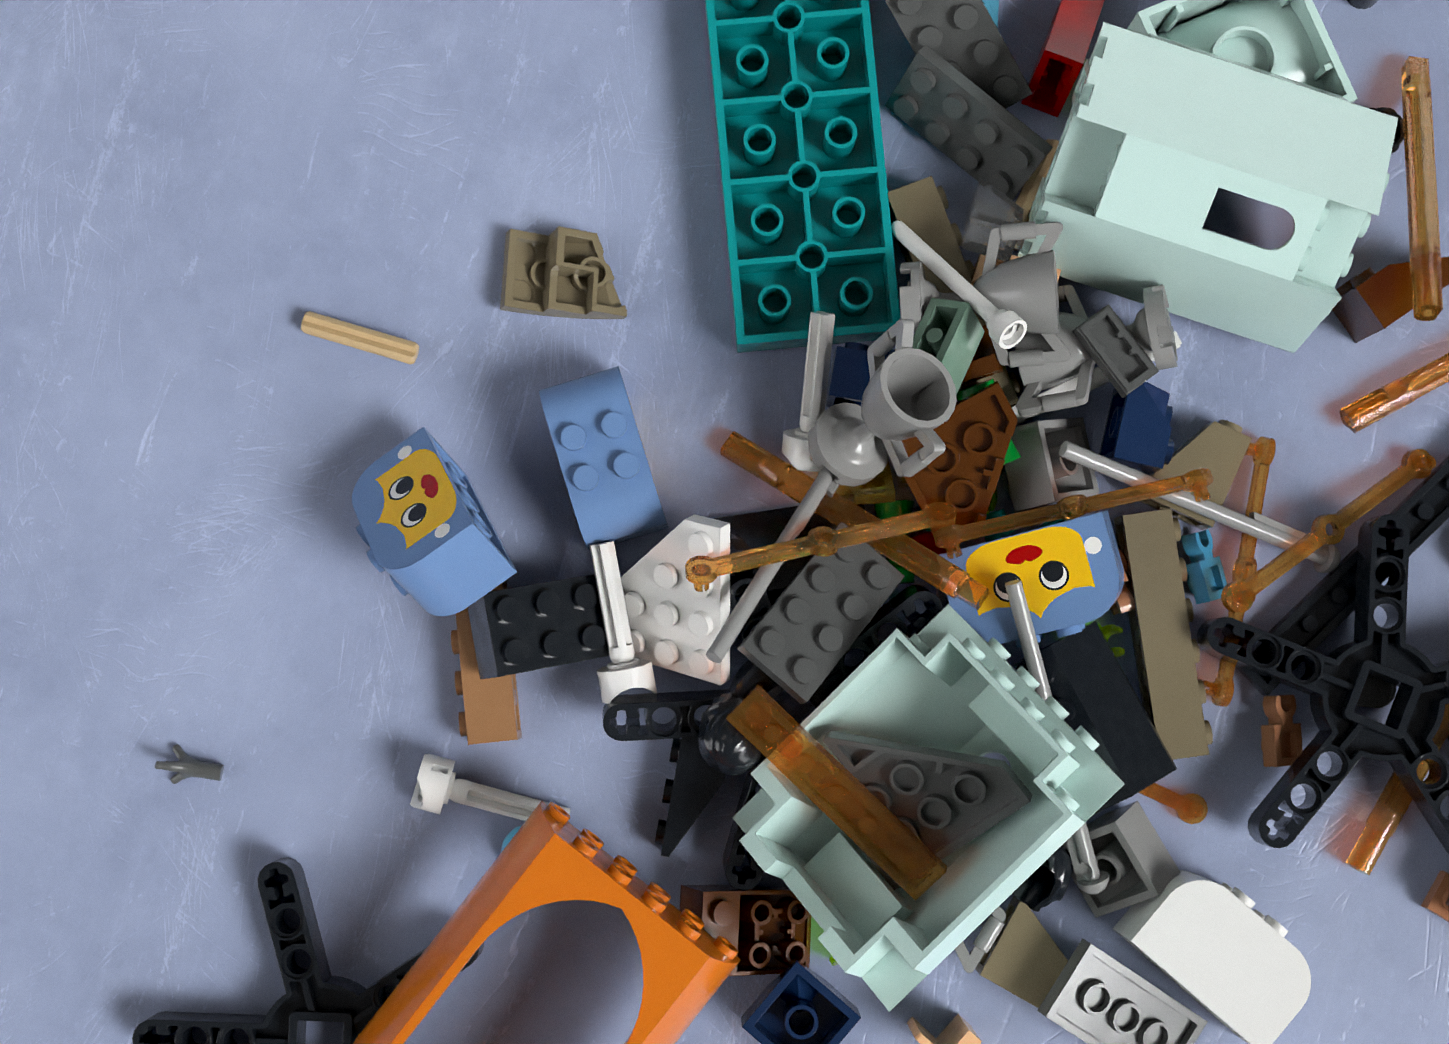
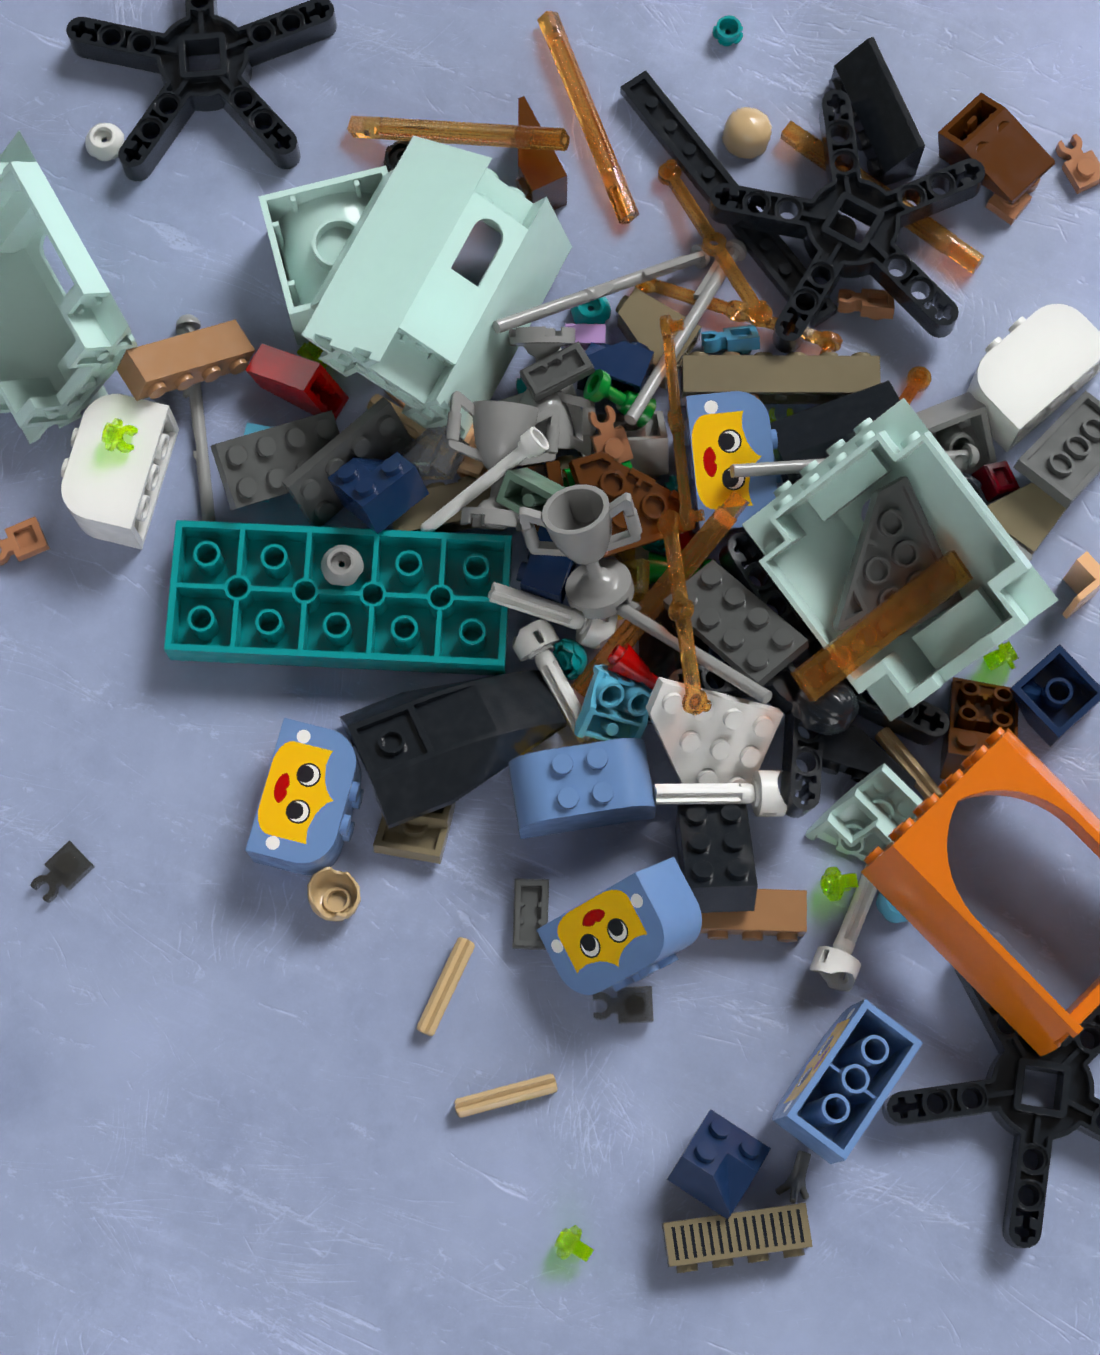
camera: 80 degrees left, 10 degrees down
(85, 521) = (569, 1243): none -> clear neon green plate
(114, 704) = (743, 1234): none -> dark tan brick
(185, 674) = (719, 1164): none -> dark blue slope
(244, 423) = (505, 1095): none -> tan axle
(286, 808) = (846, 1081): none -> medium blue brick
(354, 552) = (631, 1005): none -> clear smoke plate
(444, 192) = (333, 894): none -> tan hair
(457, 420) = (530, 912): none -> dark grey plate
(536, 772) = (834, 883): none -> clear neon green plate
(547, 141) = (306, 800): none -> brick
(622, 805) = (866, 814): none -> light aqua slope
(644, 293) = (449, 738): none -> black wedge
(692, 847) = (897, 750): none -> tan axle
(712, 483) = (613, 707): none -> medium azure slope
(741, 408) = (535, 643): none -> white piece
(761, 490) = (628, 663): none -> red cone
(766, 425) = (570, 657): none -> teal plate
(831, 145) = (342, 575): none -> light grey plate
(935, 161) = (378, 489): none -> dark blue slope
(1037, 430) = (610, 439): none -> nougat plate
(1071, 918) = (996, 480): none -> dark red slope
(1103, 406) = (599, 387): none -> green piece
(1182, 387) = (588, 333): none -> lavender piece
(1206, 396) = (599, 315): none -> teal plate
(1307, 510) = (696, 257): none -> light grey bar

